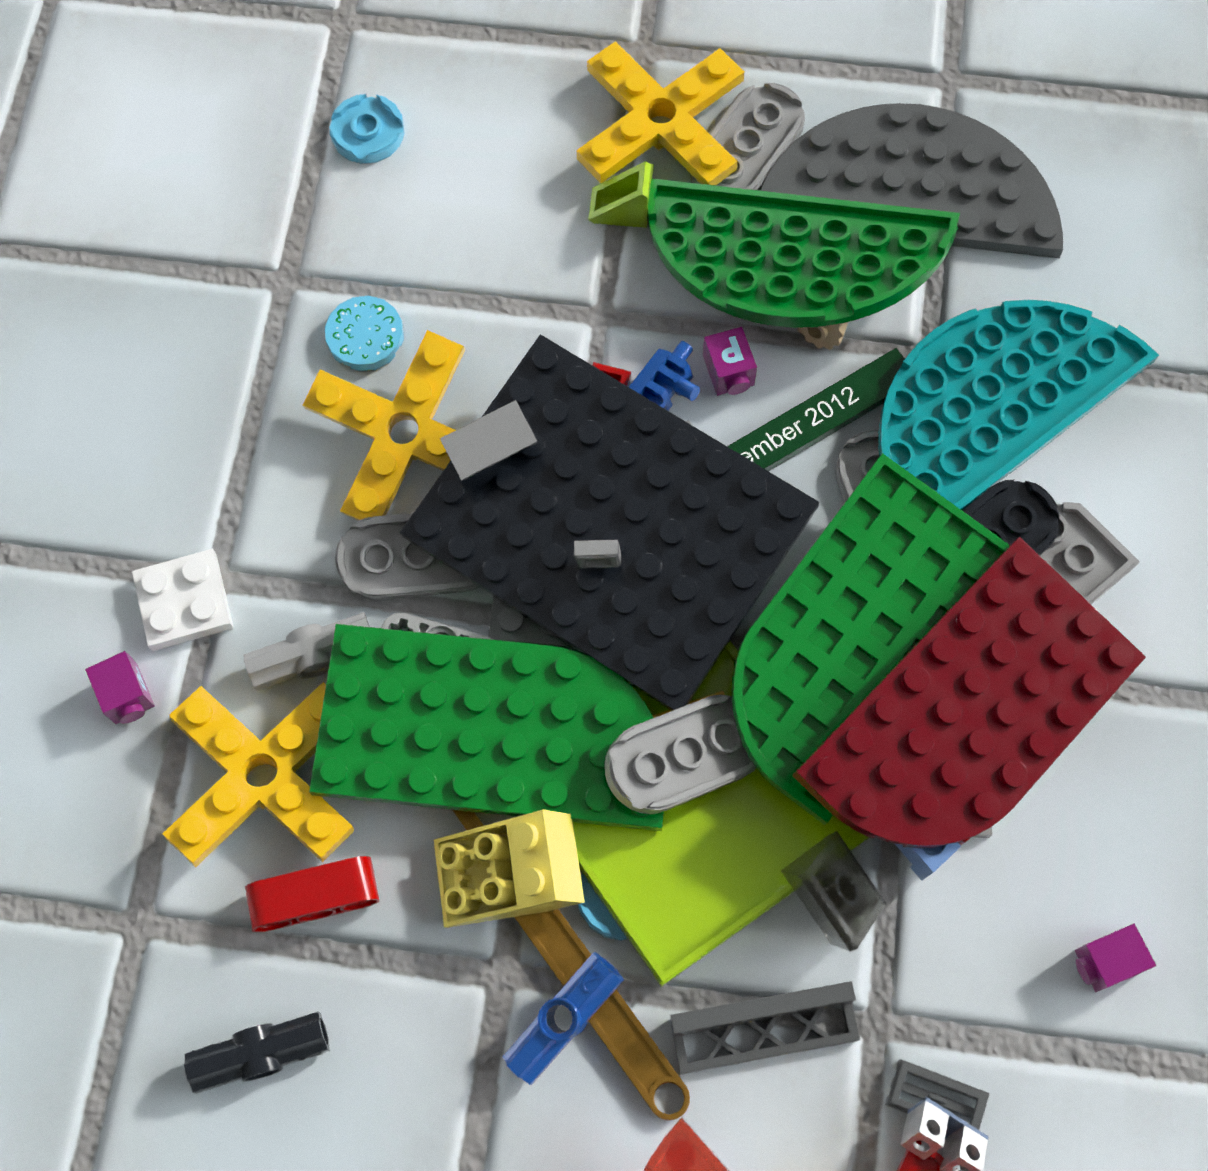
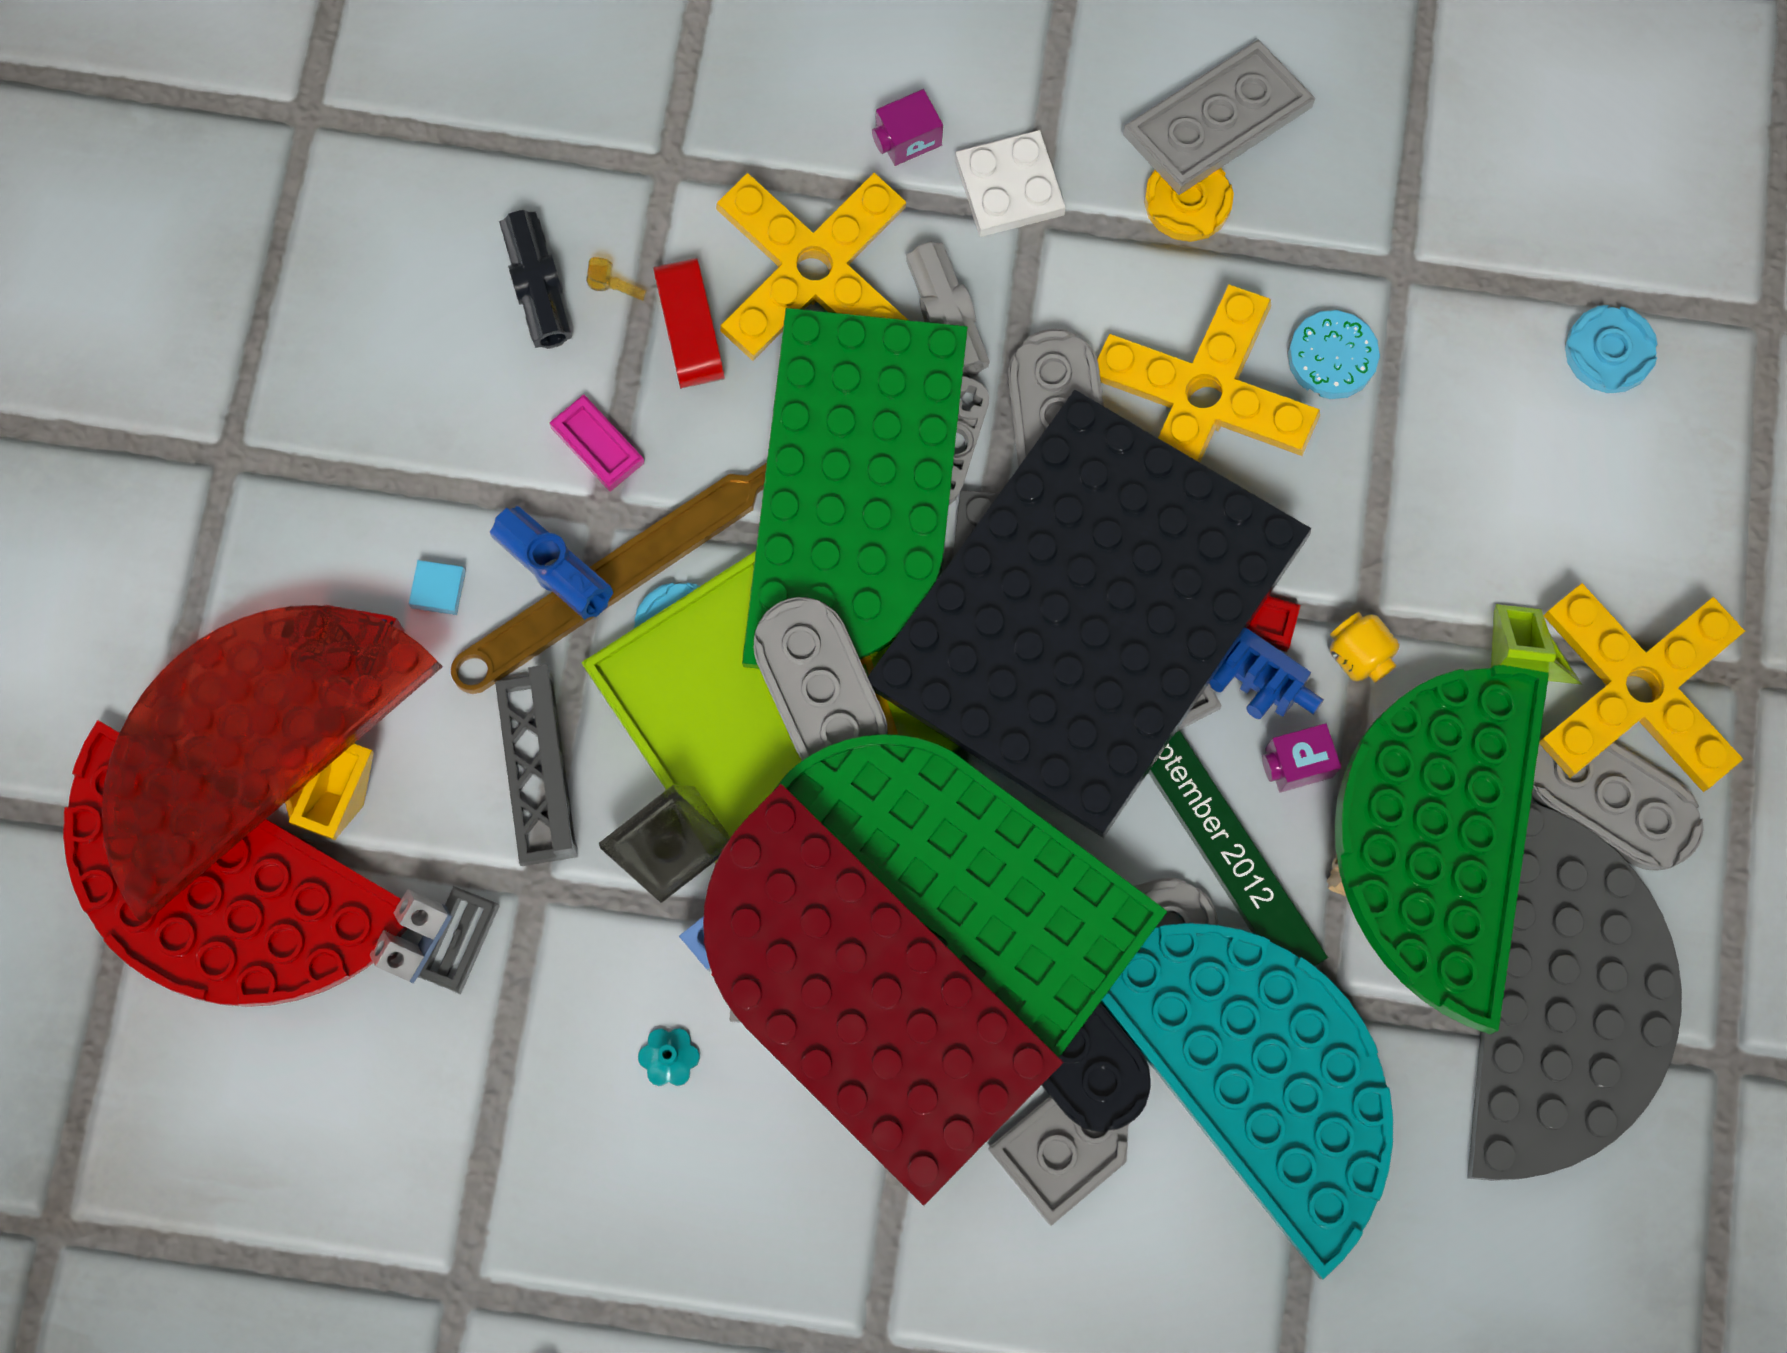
camera: 85 degrees right, 5 degrees up
(132, 419) = (1218, 117): none -> light grey tile
(208, 447) = (1193, 213): none -> yellow tile
(256, 988) = (600, 279): none -> clear yellow hand
(432, 984) = (596, 443): none -> dark pink tile
(488, 440) = (1168, 469): light grey hinge -> none
(508, 869) = (703, 510): light yellow slope -> none
(583, 1140) = (437, 587): none -> medium azure tile
(597, 553) = (1035, 585): light grey tile -> none
(631, 313) = (1364, 647): none -> yellow head
(1018, 896) = (672, 1070): none -> teal plant
(1113, 958) = (588, 1135): magenta brick -> none

